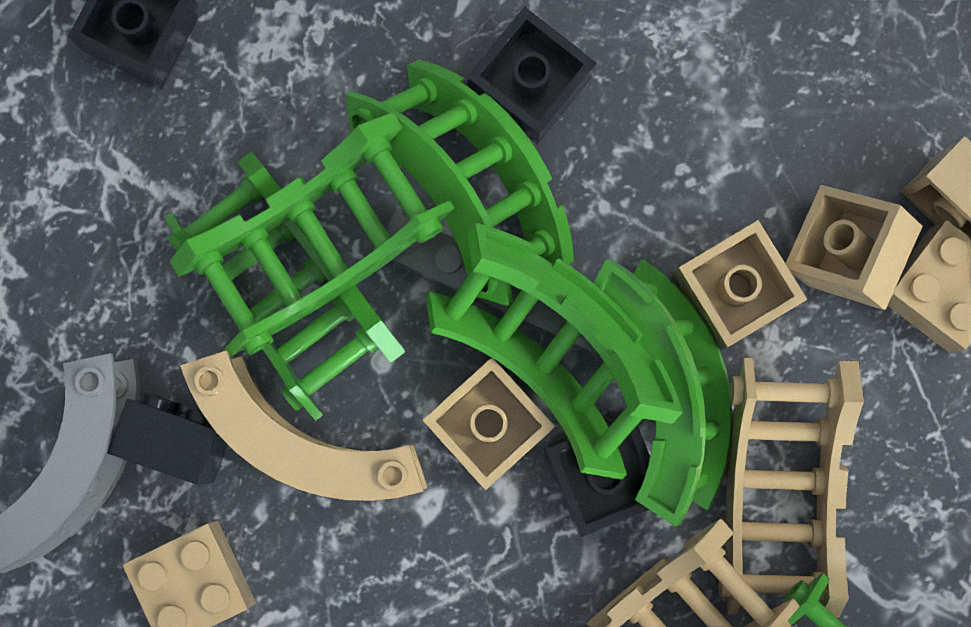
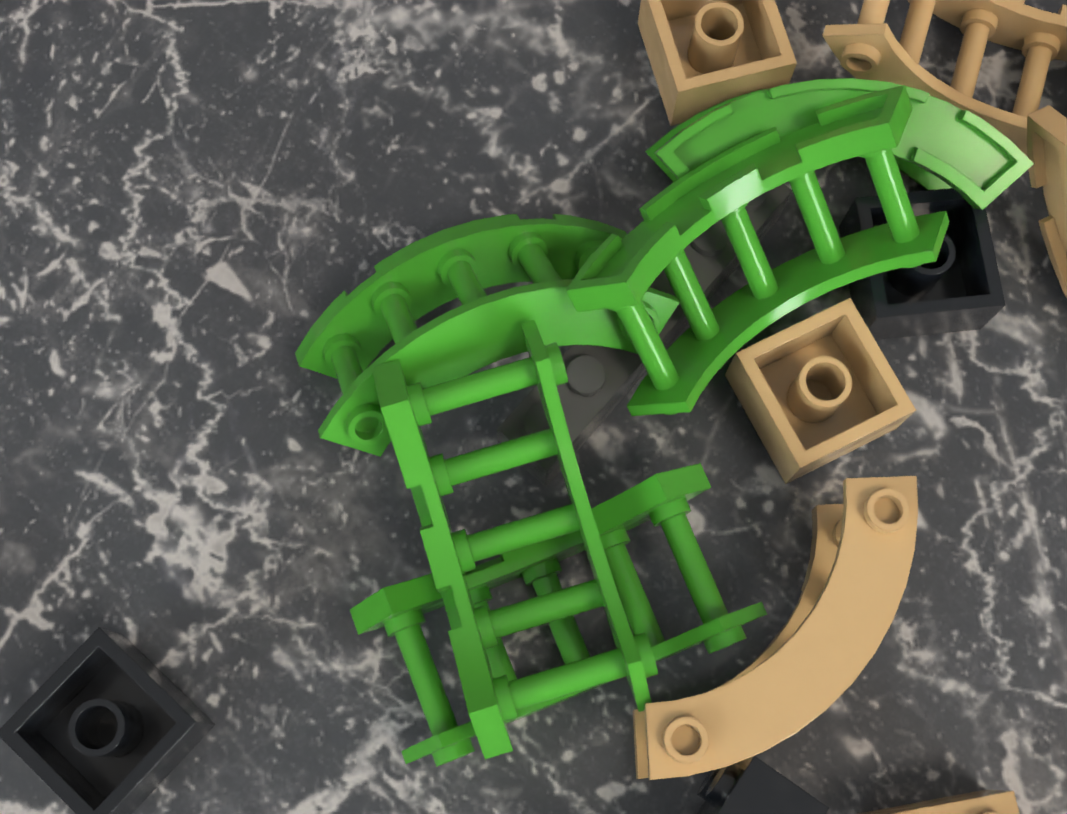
camera: 75 degrees left, 10 degrees down
(532, 74) = (362, 203): black brick -> none

